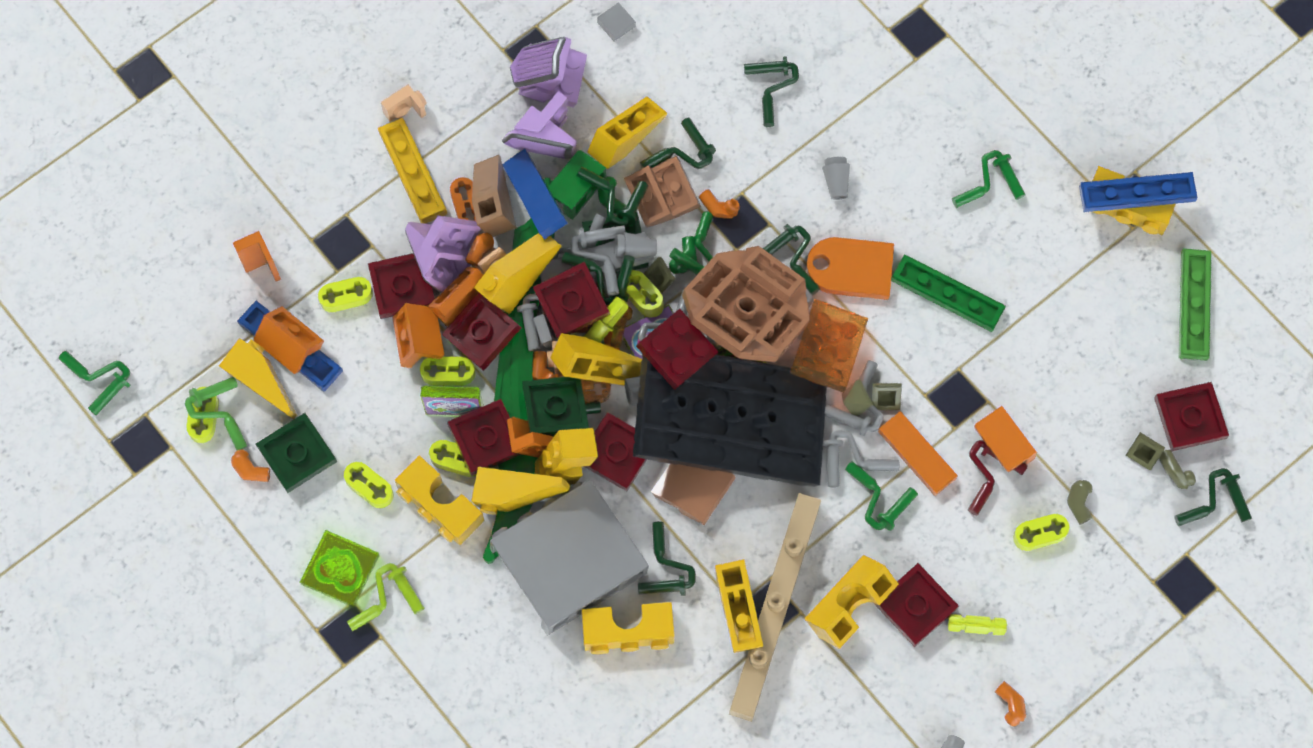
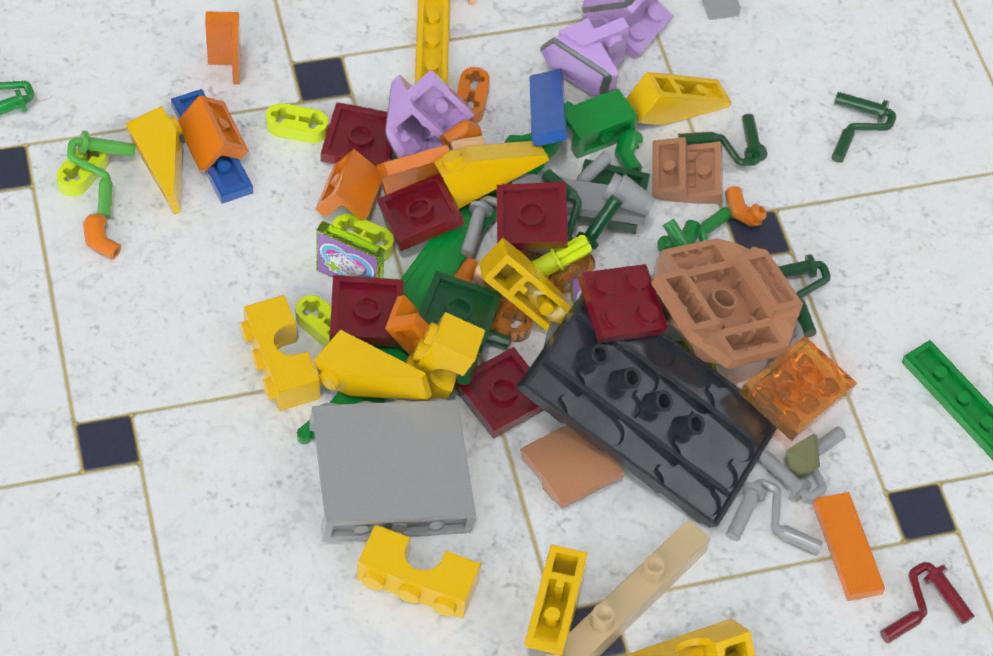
camera: 20 degrees right, 15 degrees down
(296, 452) = (157, 242): dark green plate -> none
(339, 568) = (135, 374): clear neon green tile -> none
(372, 479) = (208, 309): neon yellow beam -> none
(403, 584) = (191, 403): lime piece -> none
(491, 197) = (499, 98): medium nougat slope -> none
(545, 331) = (487, 237): light grey tile -> none
(599, 235) = (590, 204): light grey piece -> none
(626, 215) = (635, 168): dark green piece -> none
(647, 290) = (619, 251): neon yellow beam -> none
(660, 274) = (642, 244): olive slope -> none
(671, 585) = (500, 557): dark green piece -> none
(837, 176) = (889, 233): light grey cone -> none
(854, 267) = (864, 329): orange tile -> none
(885, 520) = (779, 597): green piece -> none
(886, 396) = (840, 469): olive slope -> none
(1005, 439) = (961, 572): orange panel -> none

